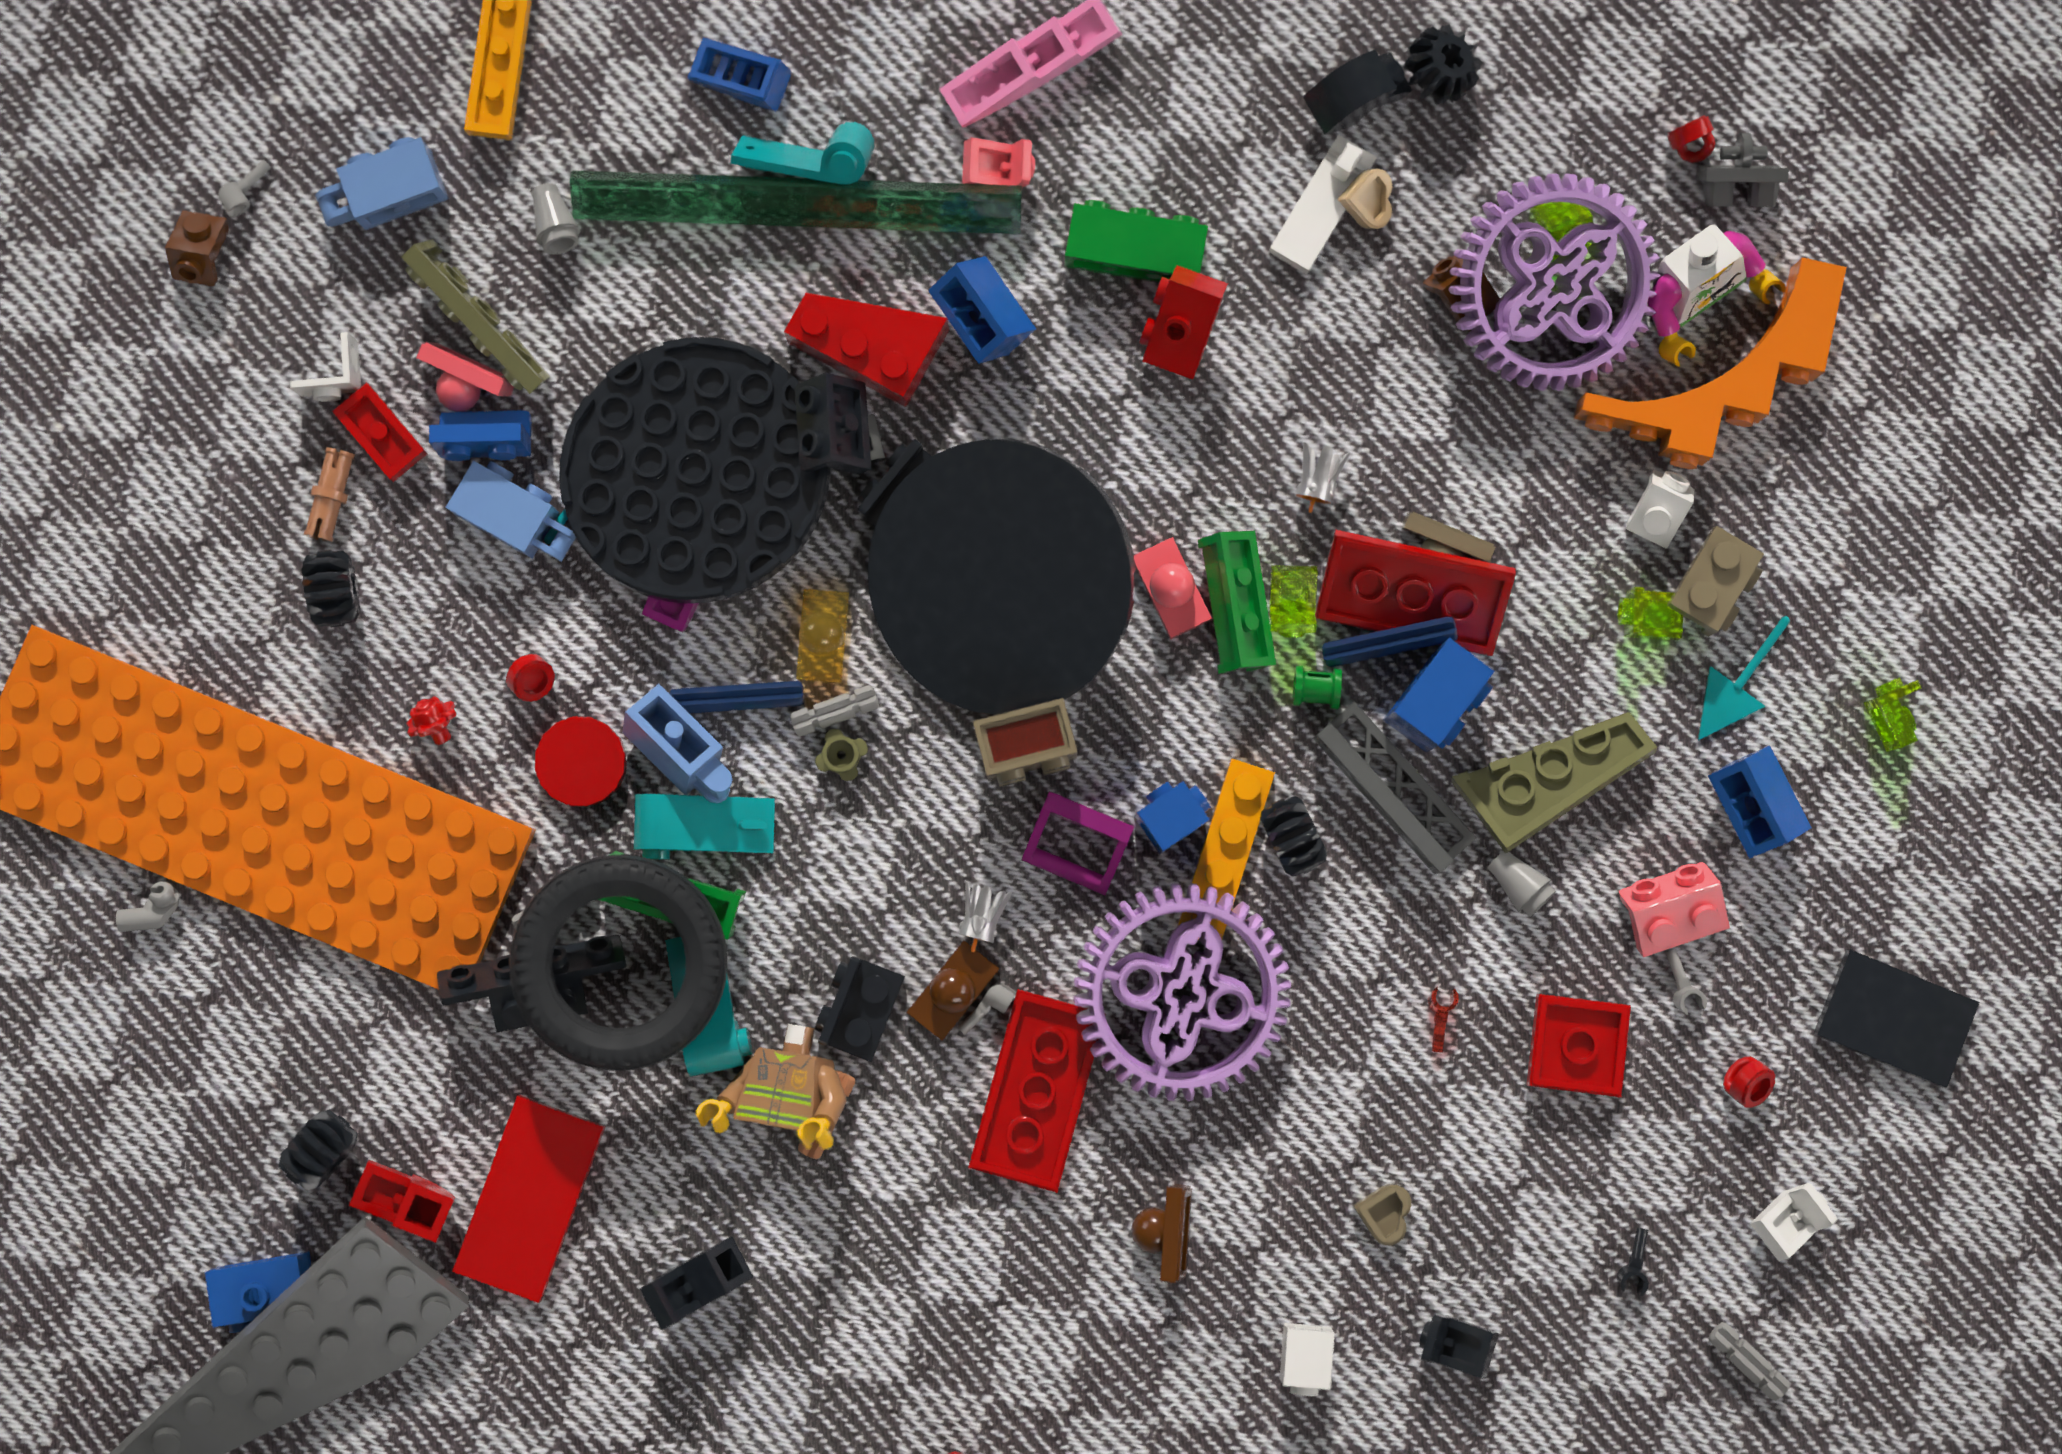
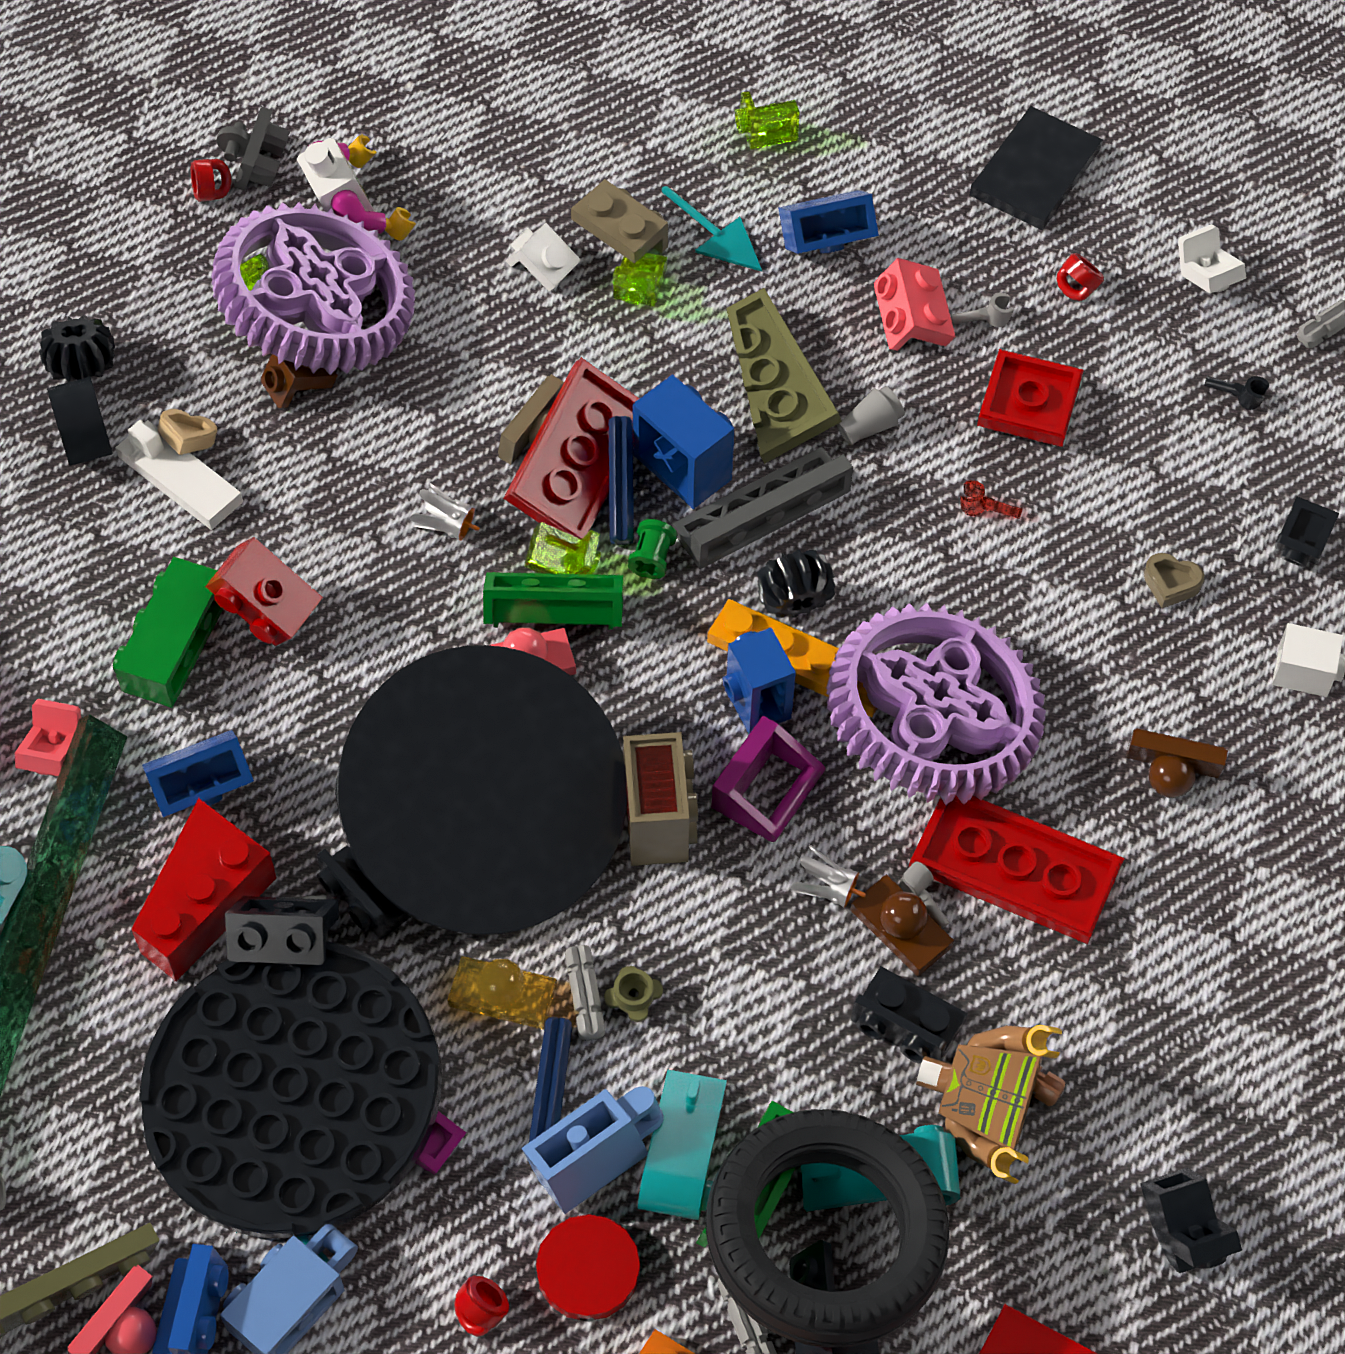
camera: 85 degrees left, 25 degrees down
(1791, 346) = (424, 143): orange arch -> none

